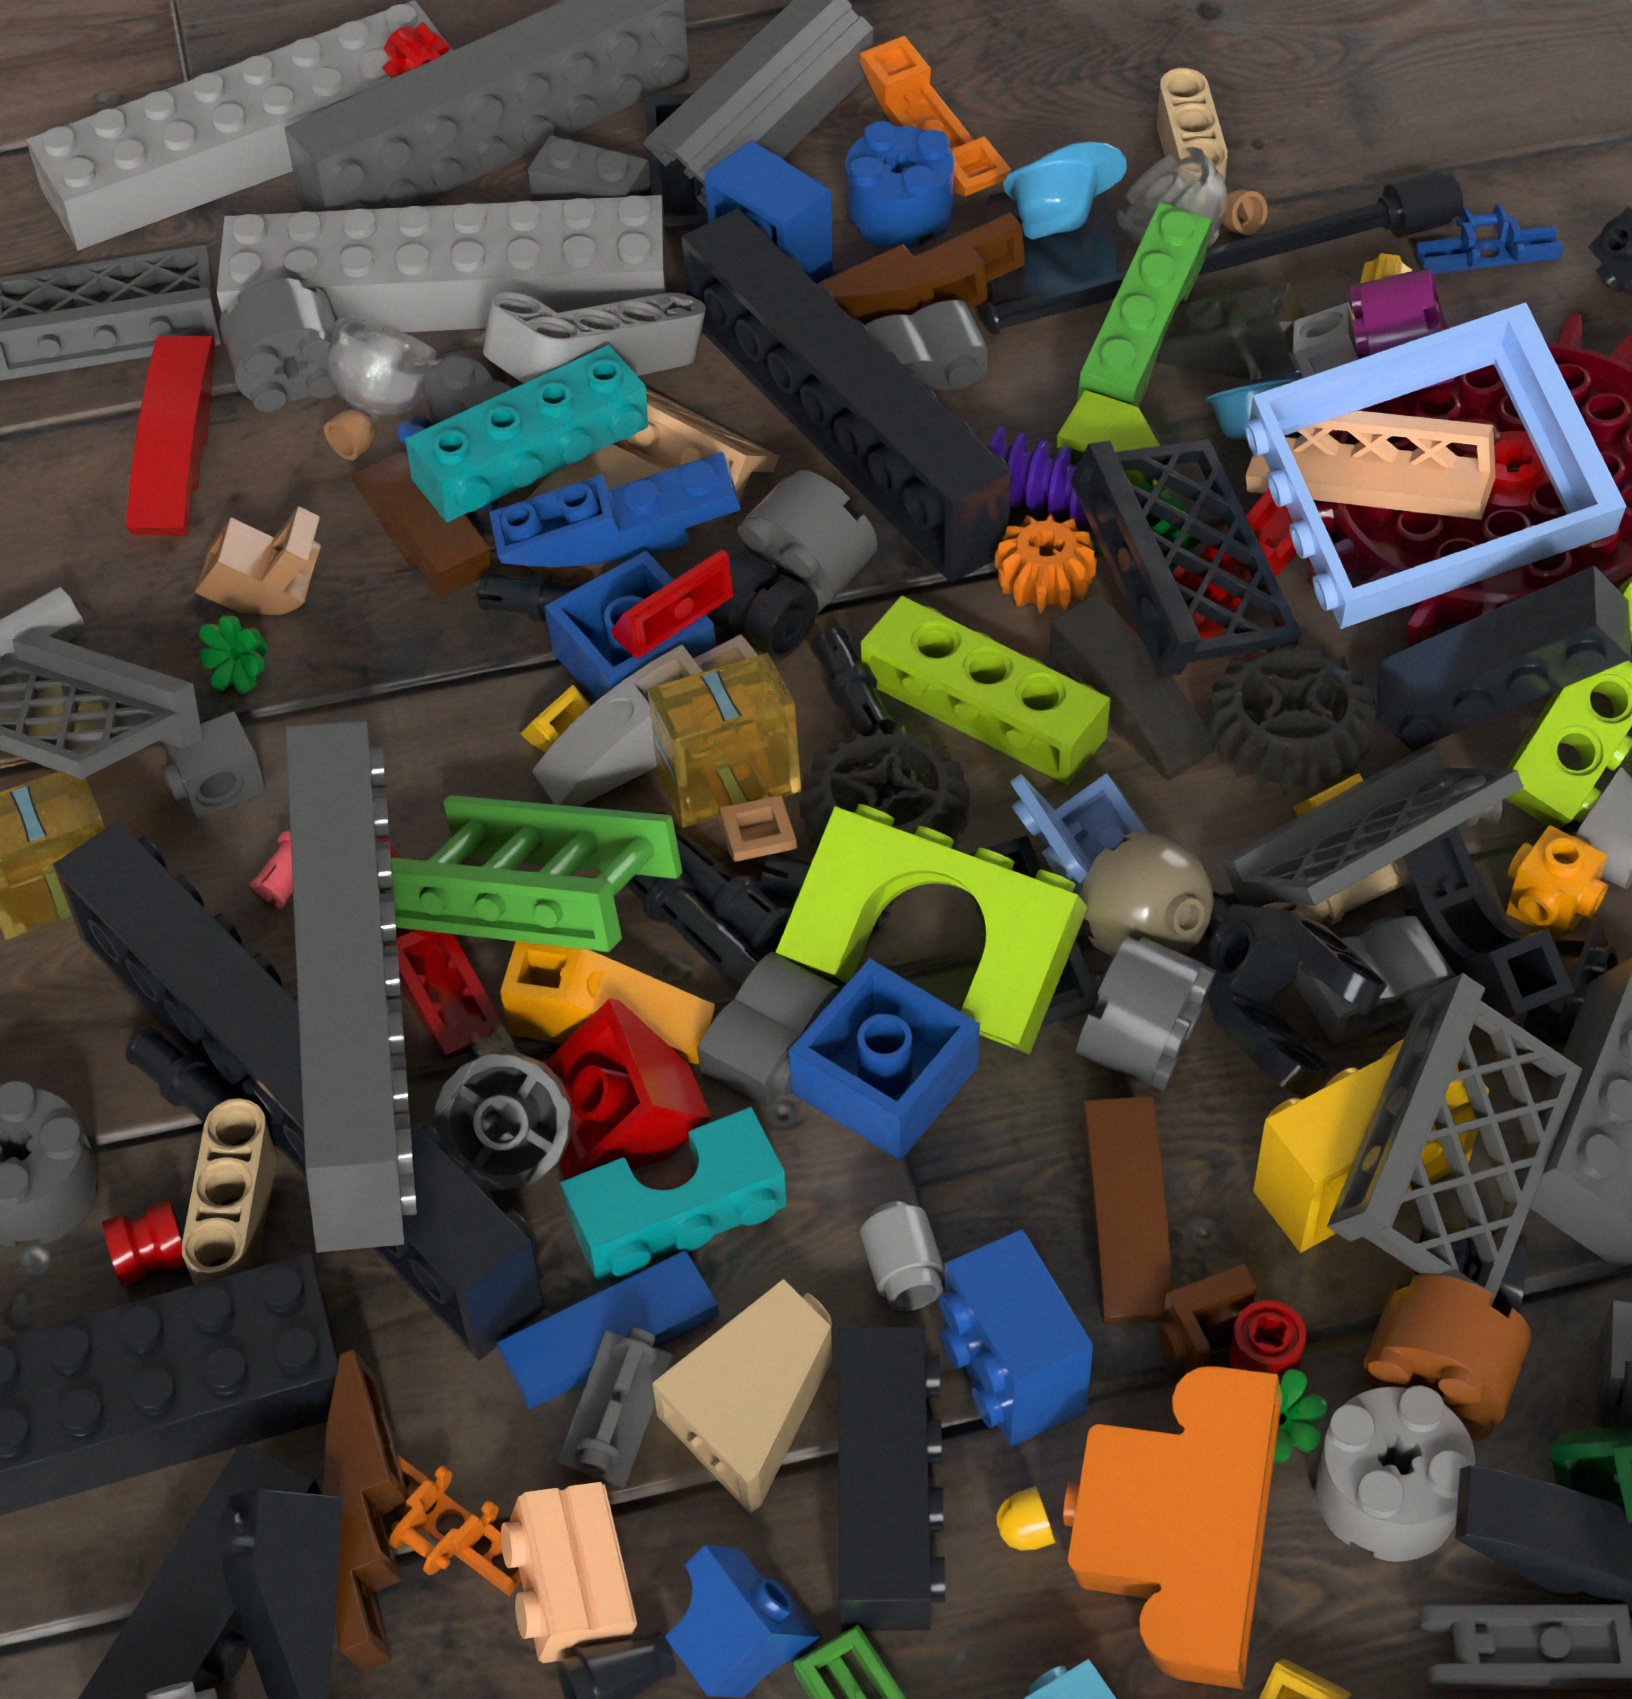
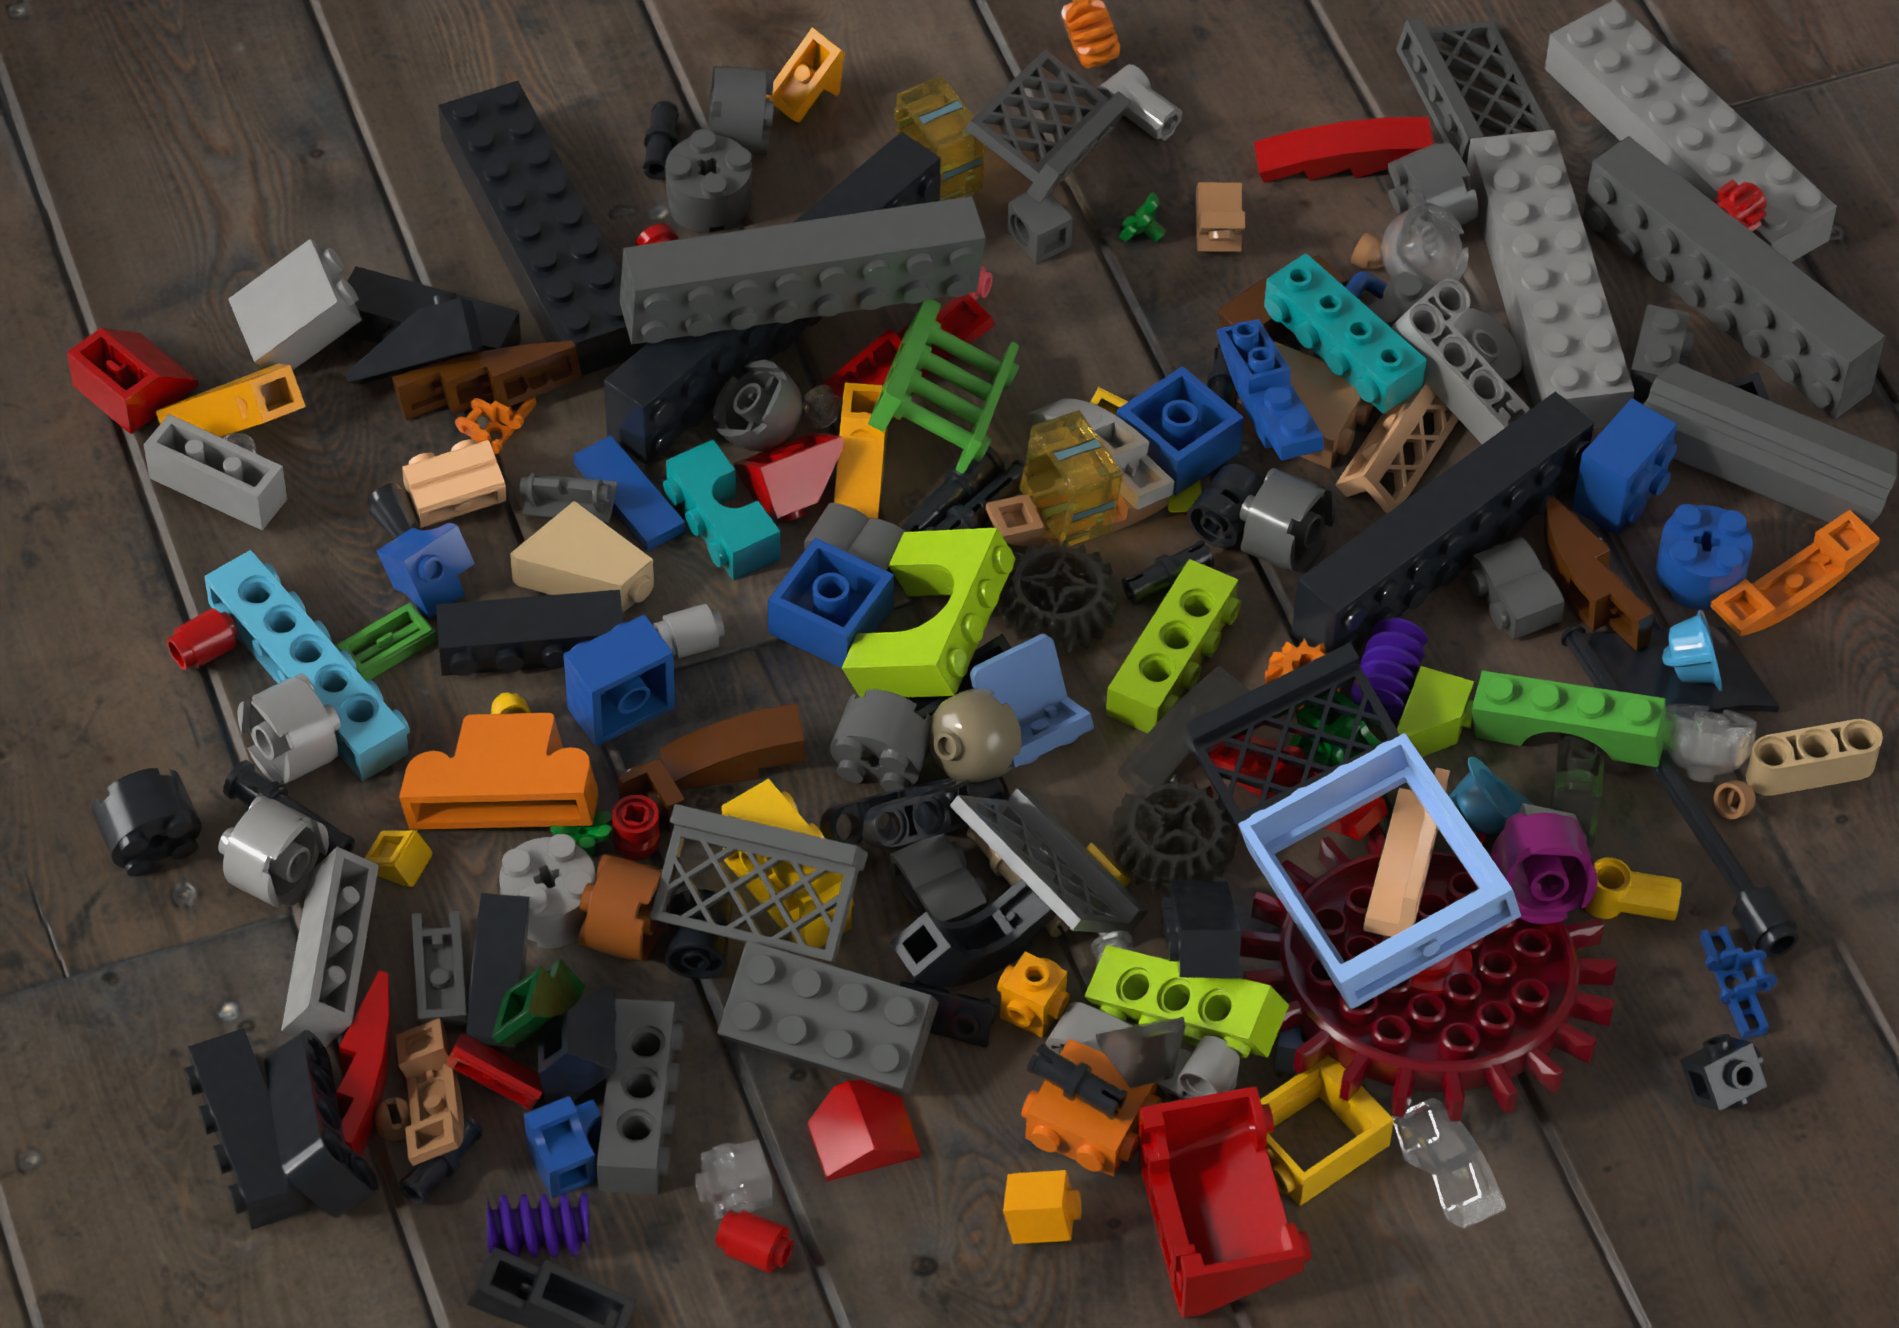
camera: 80 degrees right, 0 degrees up
(675, 606) = (1178, 431): red slope -> none

